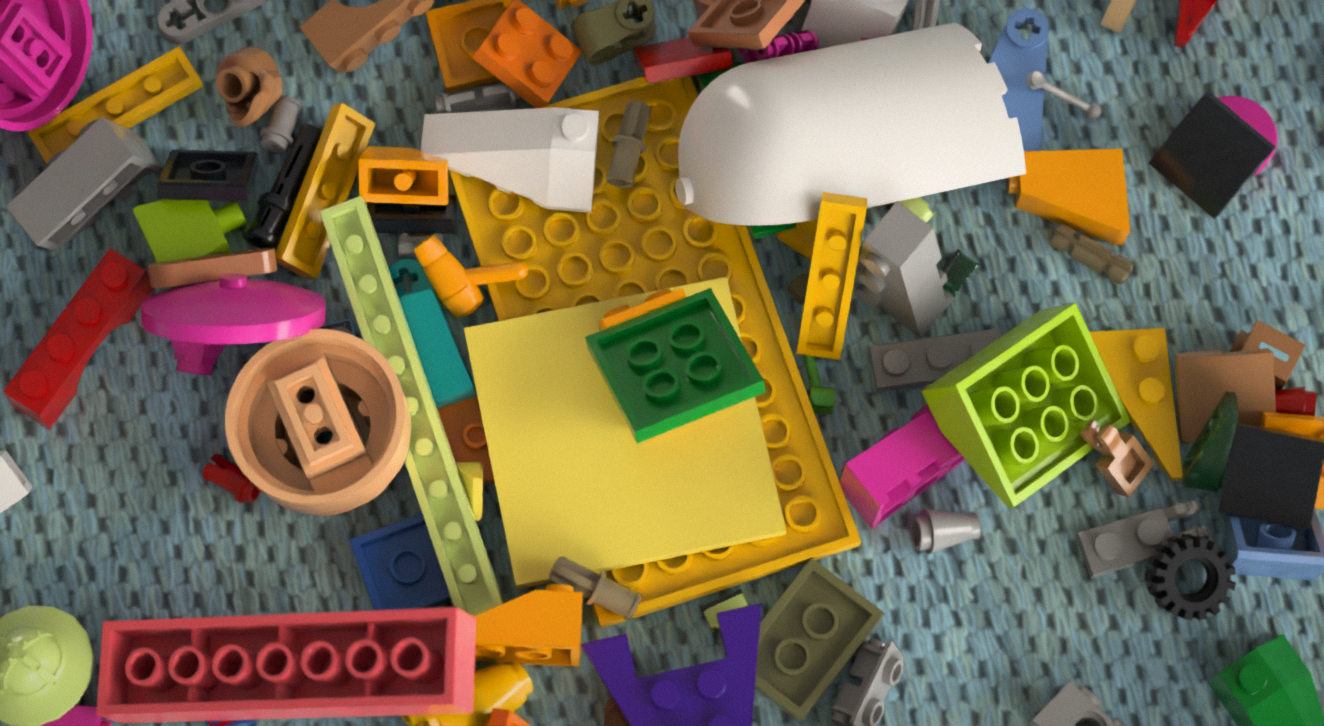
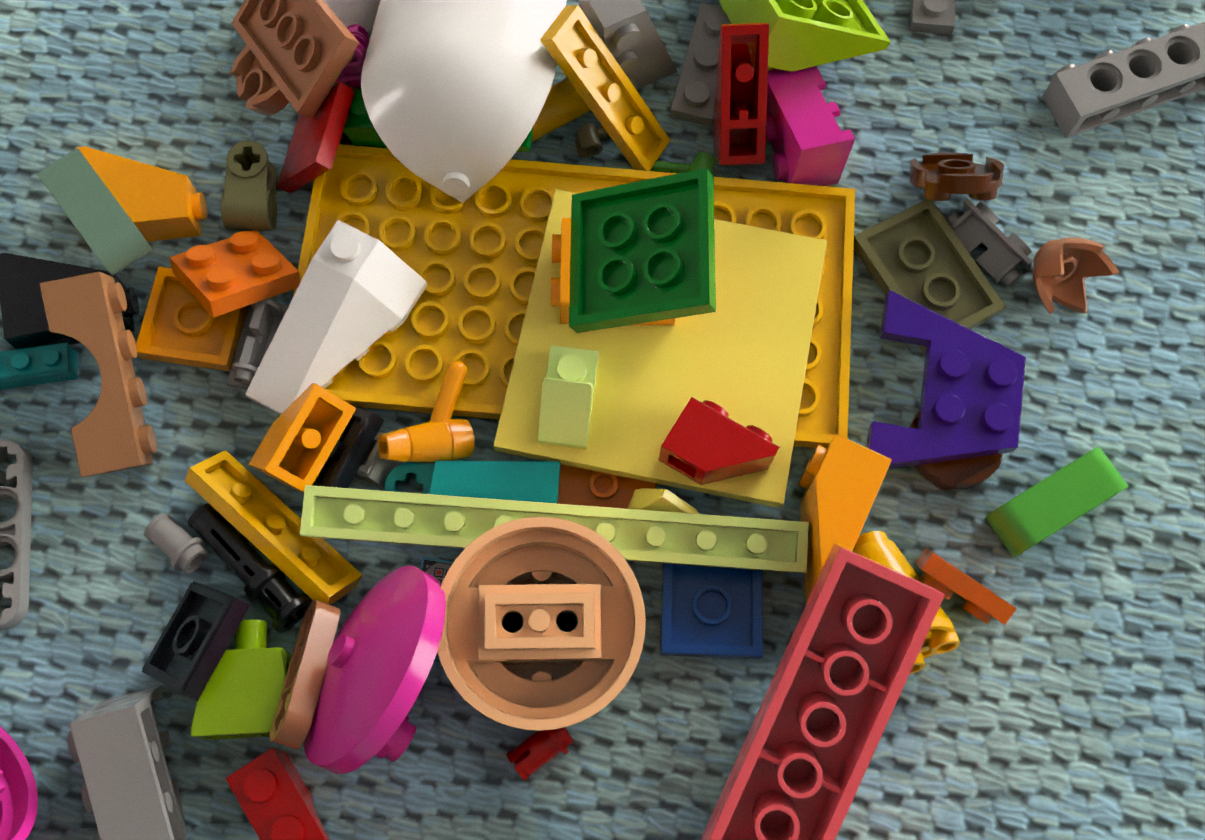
camera: 65 degrees left, 0 degrees up
(123, 102) = (58, 697): yellow plate -> none
(248, 84) = (115, 557): medium nougat head -> none
(530, 368) = (567, 397): none -> yellowish green slope
(532, 500) = (714, 447): none -> red slope
(595, 587) = (818, 428): dark tan axle -> none
(629, 144) = (379, 219): dark tan axle -> none
(728, 602) = (868, 331): yellowish green piece -> none
(883, 396) = (741, 94): none -> red slope
(914, 625) = (956, 174): none -> reddish brown plate
(942, 529) = (868, 123): light grey cone -> none

